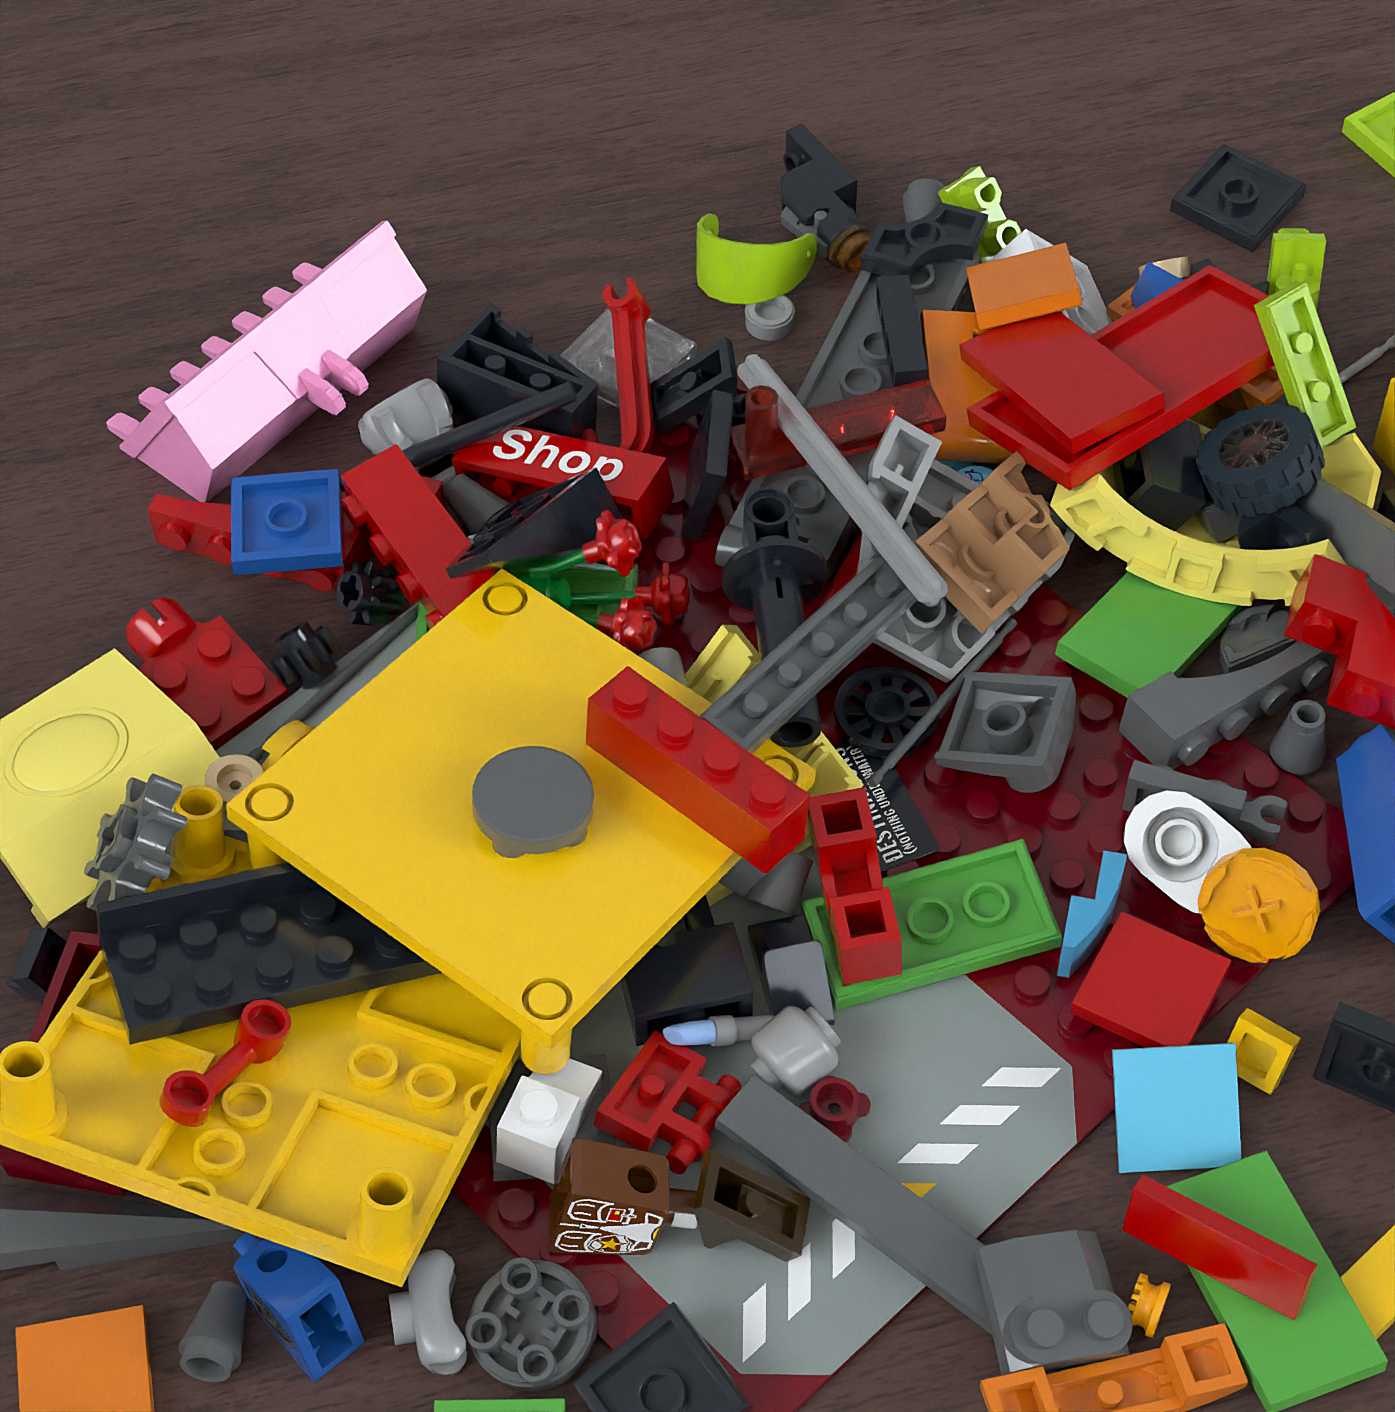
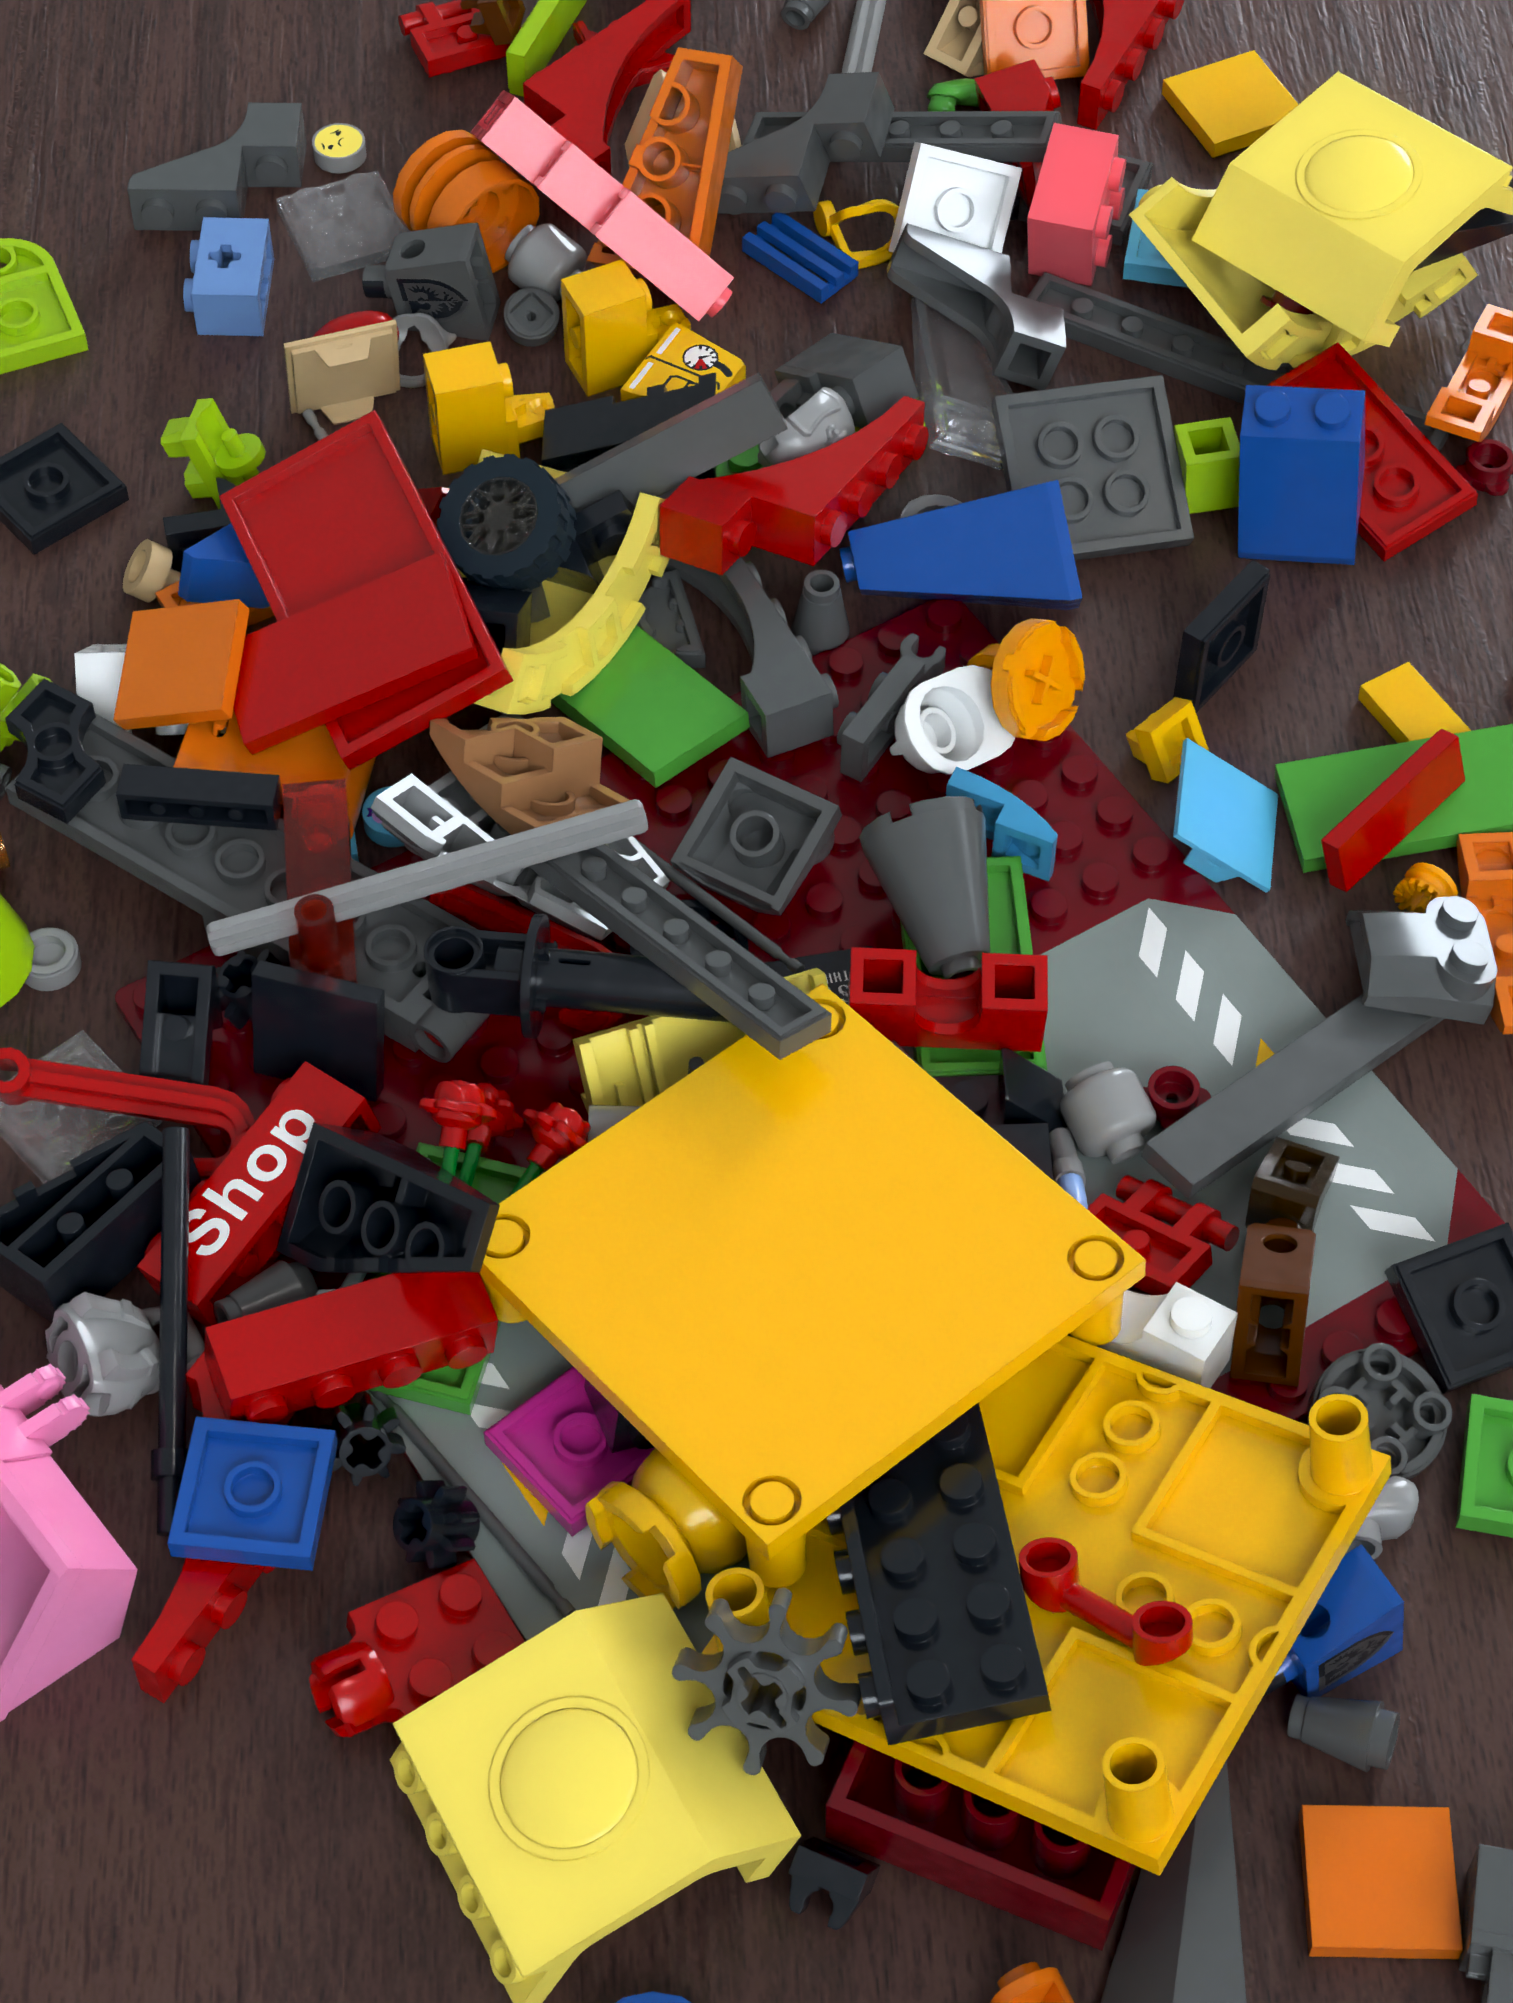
camera: 80 degrees left, 0 degrees up
(232, 775) = (688, 1563): tan tile -> none
(532, 801) = (837, 1228): dark grey tile -> none
(697, 769) = (828, 1068): red brick -> none
(974, 855) = (936, 880): none -> dark grey cone
(1150, 985) = (1097, 797): red tile -> none
(1305, 360) = (409, 435): lime tile -> none

